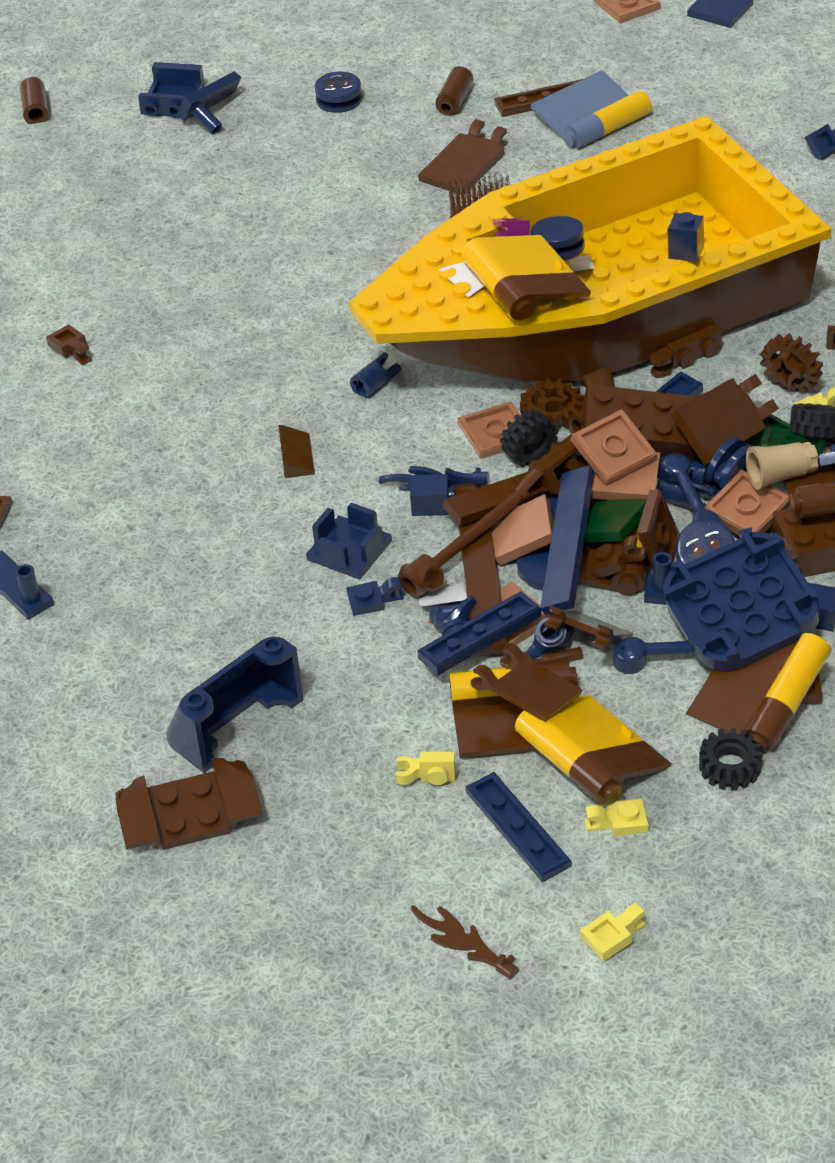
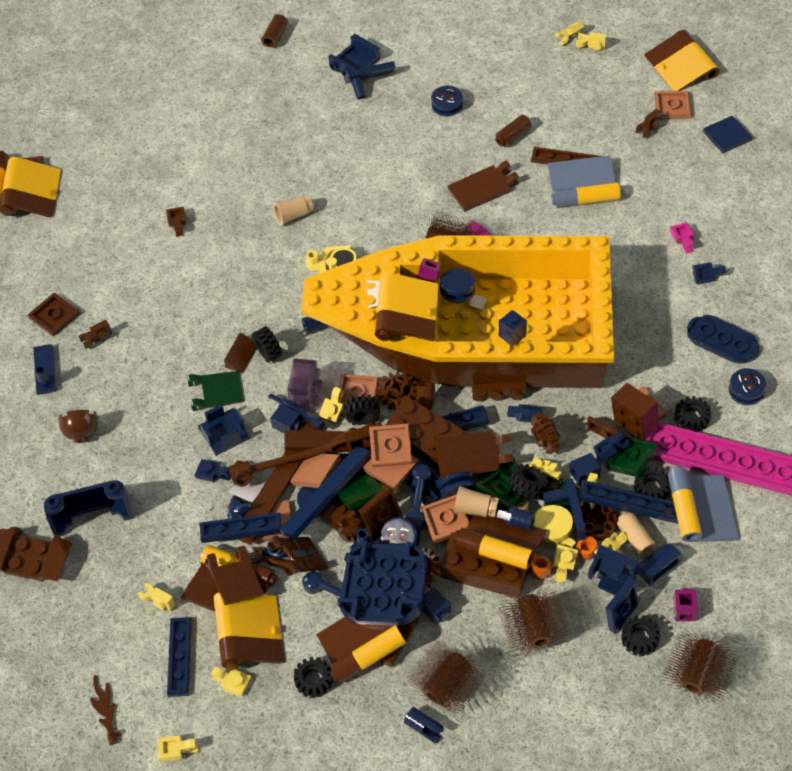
camera: 30 degrees right, 10 degrees up
(65, 507) = (97, 332): none -> reddish brown plate
(131, 620) = (78, 425): none -> reddish brown cylinder
(229, 271) = (292, 209): none -> tan plant
(296, 504) = (217, 389): none -> dark green flag
(315, 314) = (330, 255): none -> light yellow piece
(342, 424) = (267, 344): none -> black tyre
(425, 437) = (304, 384): none -> clear purple brick
(480, 454) = (333, 408): none -> light yellow plate
(620, 24) = (650, 121): none -> reddish brown plate
(739, 360) = (523, 412): none -> dark blue hinge
(763, 115) = (683, 234): none -> dark pink plate

